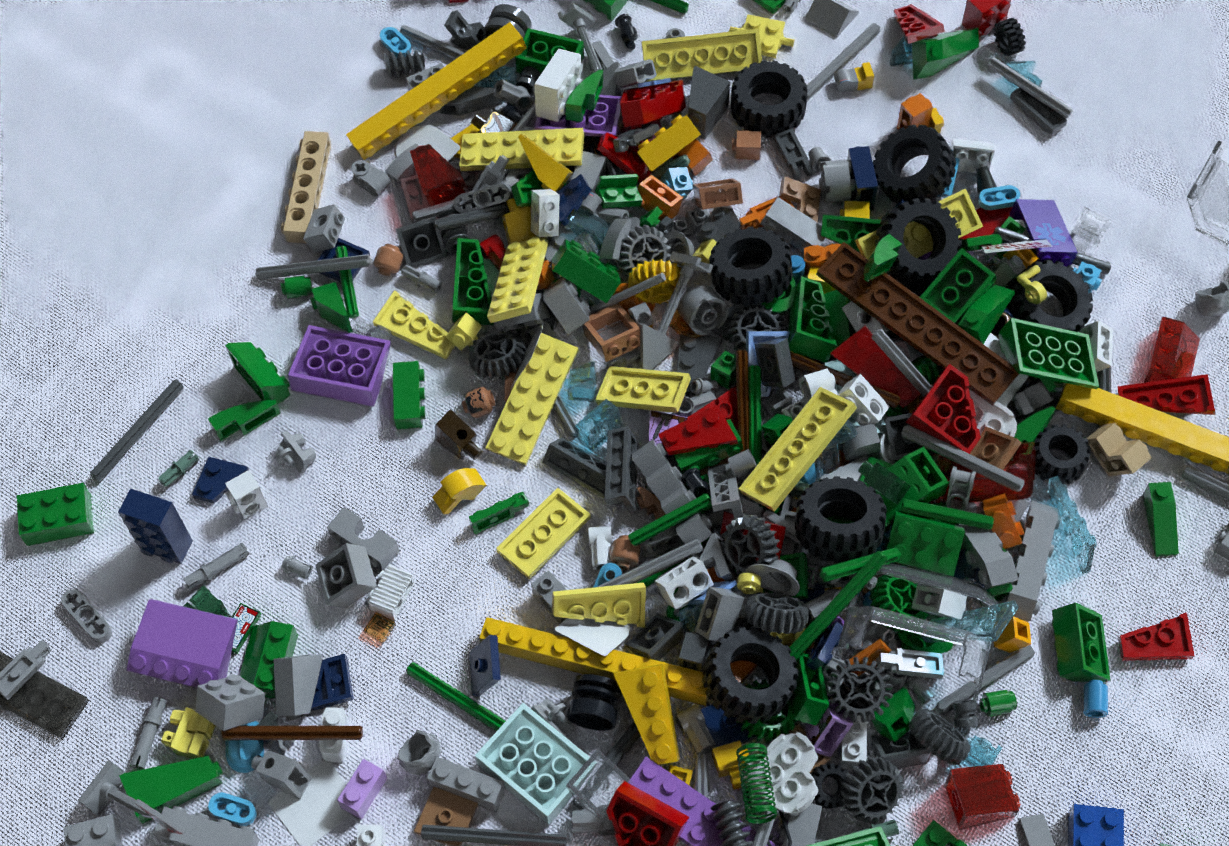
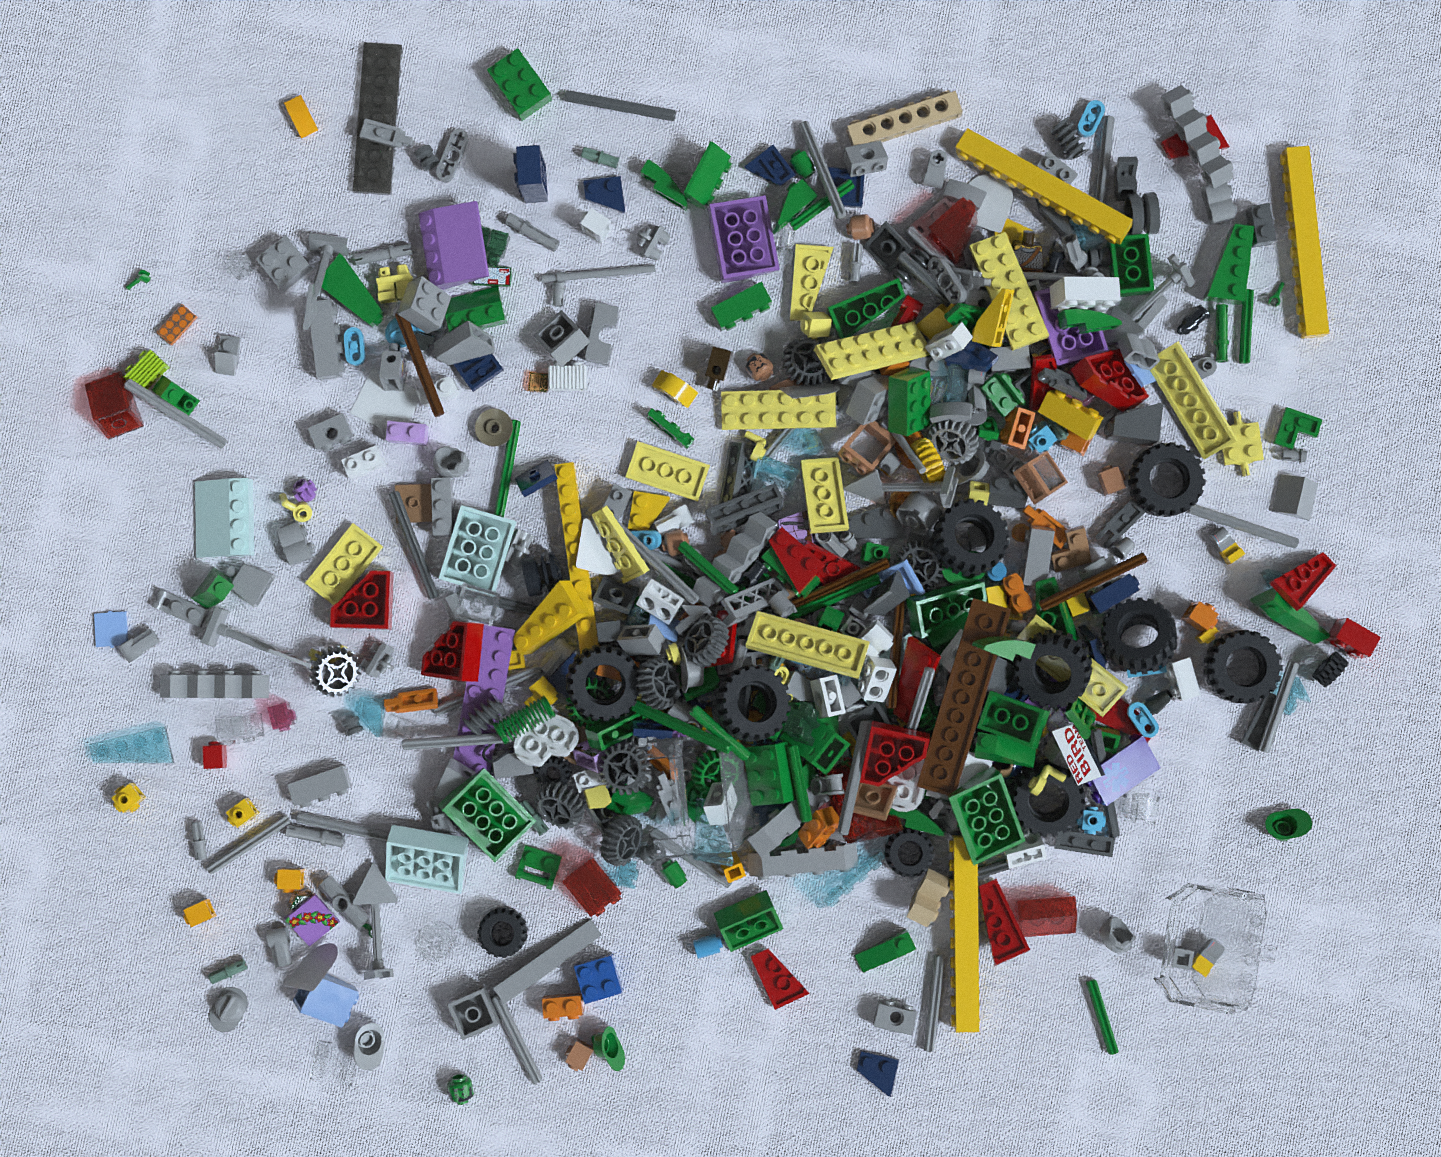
camera: 65 degrees right, 25 degrees up
(72, 641) = (426, 157): none -> dark grey wheel
(280, 554) = (561, 277): none -> light grey bar
(283, 315) = (771, 167): none -> dark blue wing
(397, 684) = (492, 418): none -> dark tan dish
(564, 431) = (759, 450): none -> light yellow plate
(573, 570) = (645, 509): none -> yellow wing
(658, 17) = (1221, 333): none -> green pin
(843, 180) = (1093, 581): none -> reddish brown axle
(857, 449) = (827, 696): none -> white brick
(879, 741) = (597, 797): none -> light yellow slope
(980, 82) = (1267, 660): none -> black tyre
(1108, 294) = (1085, 843): none -> dark grey plate
(1150, 119) = (1288, 824): none -> green piece

